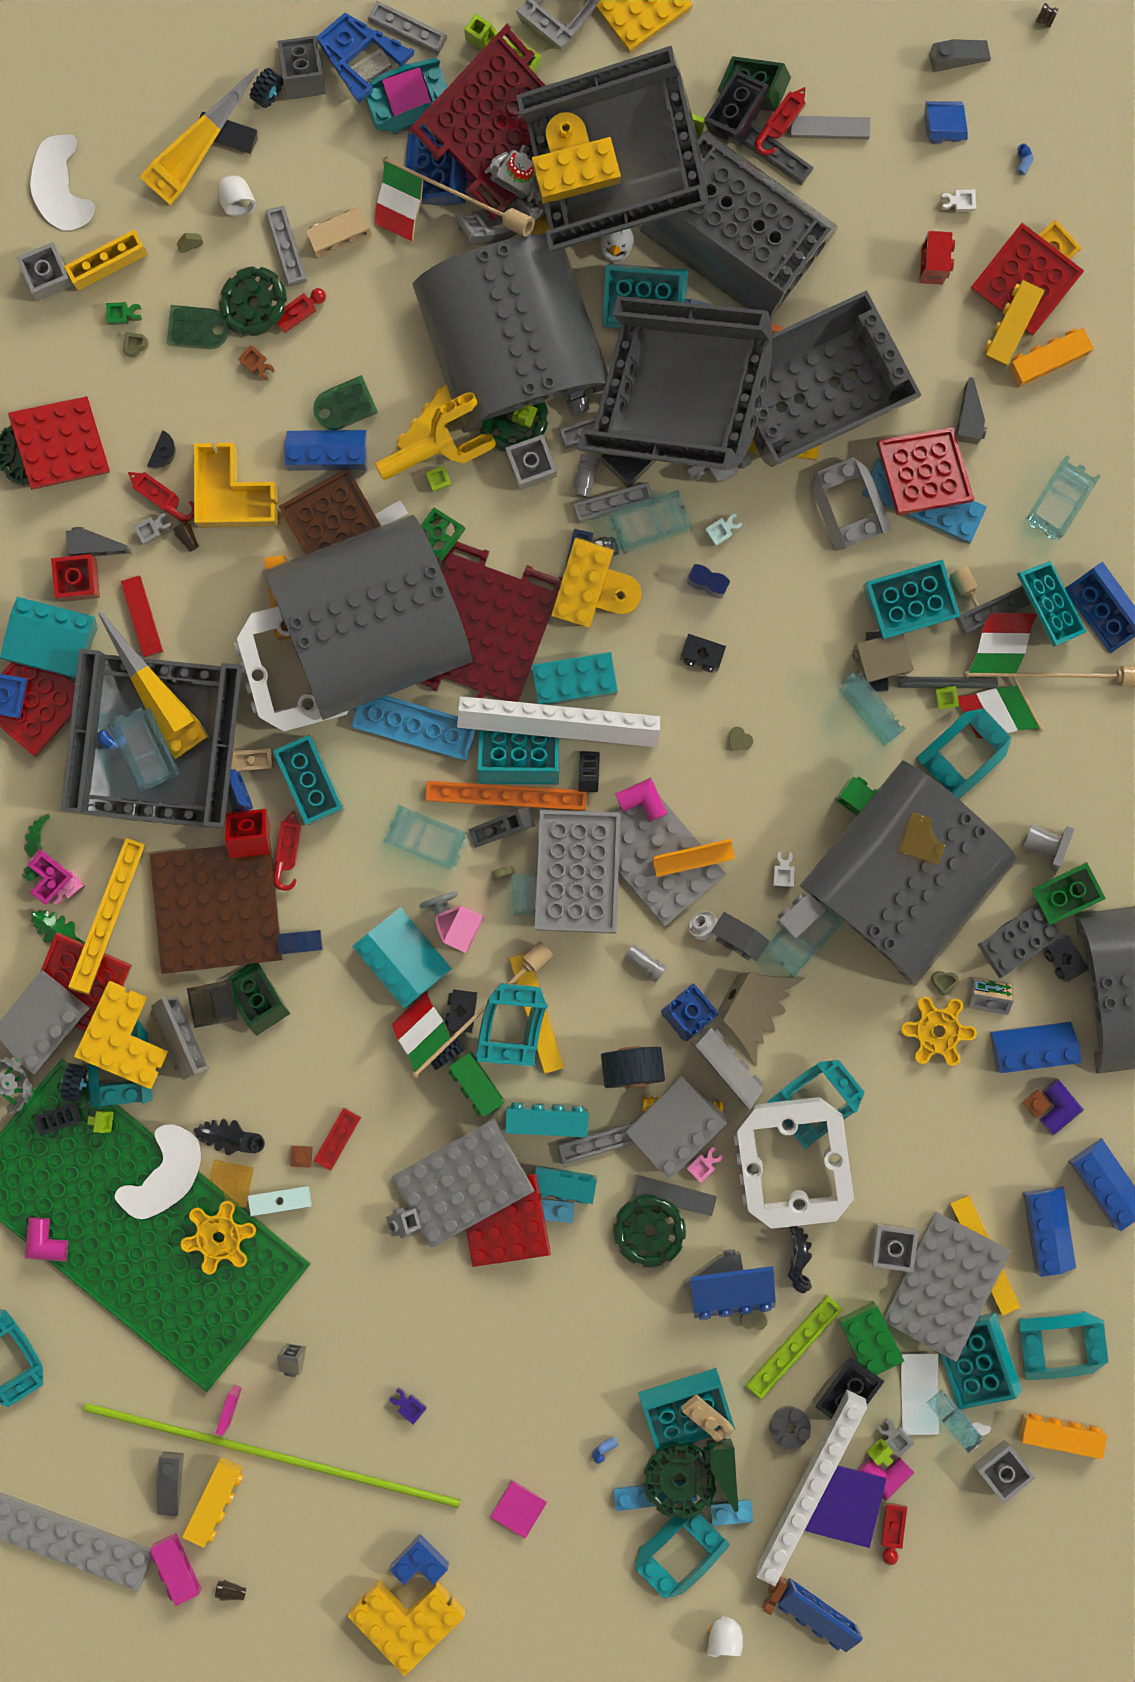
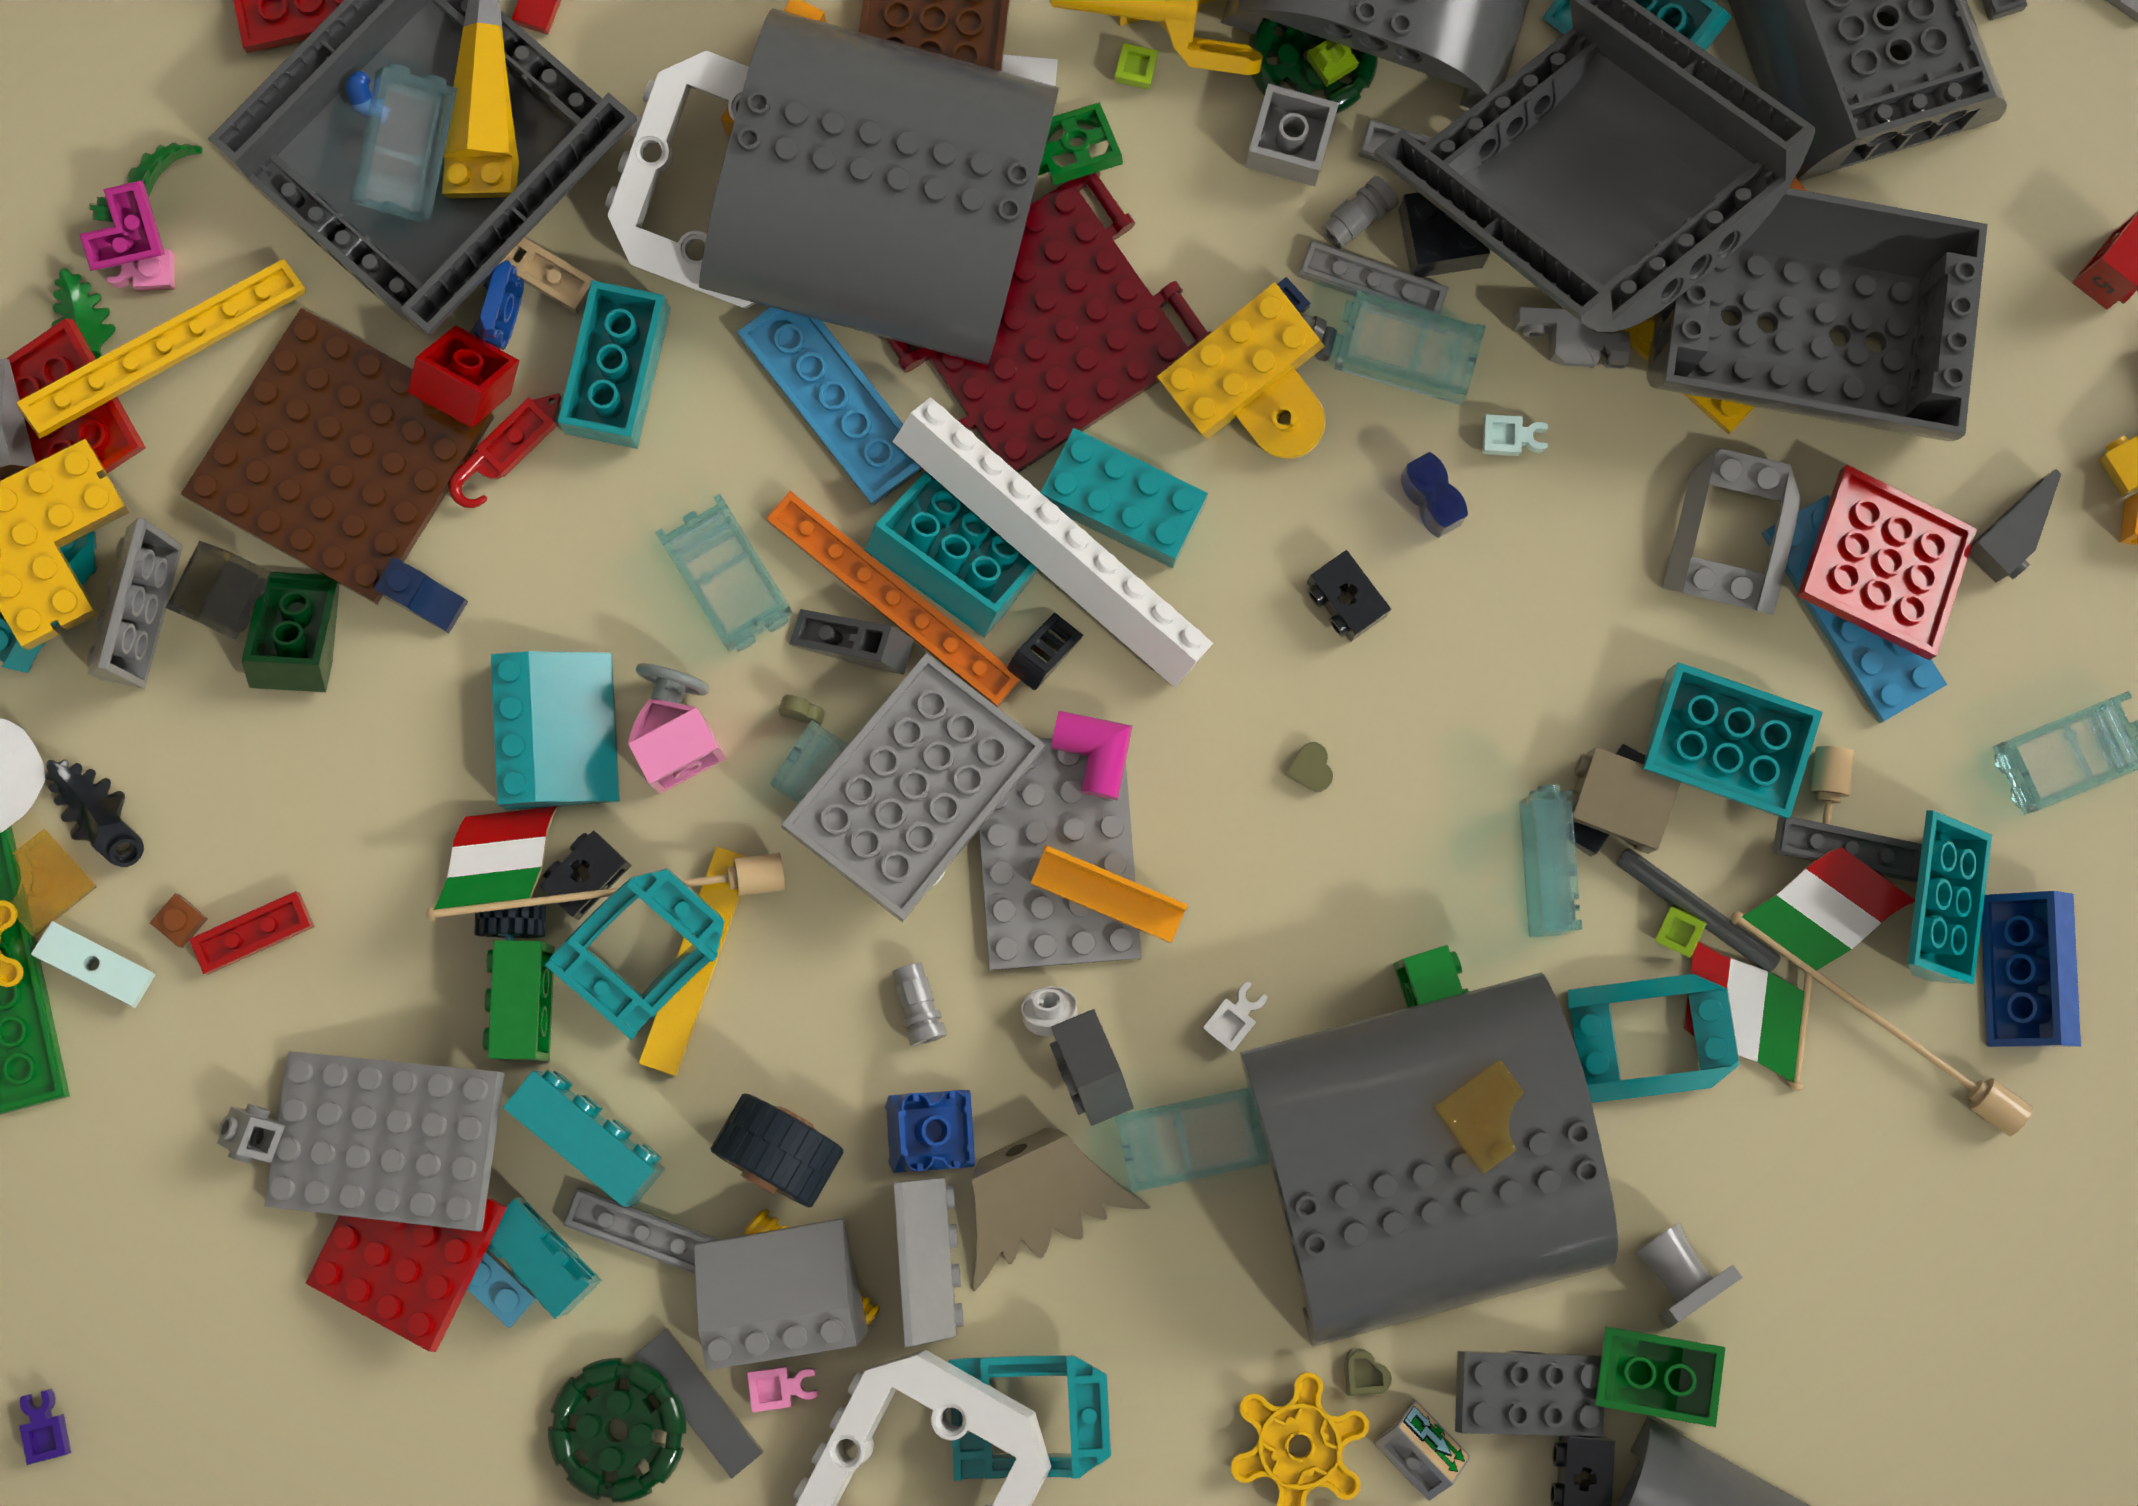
camera: 35 degrees right, 5 degrees down
(578, 402) = (1427, 96): dark grey piece -> none
(800, 916) = (1208, 1100): light grey brick -> none

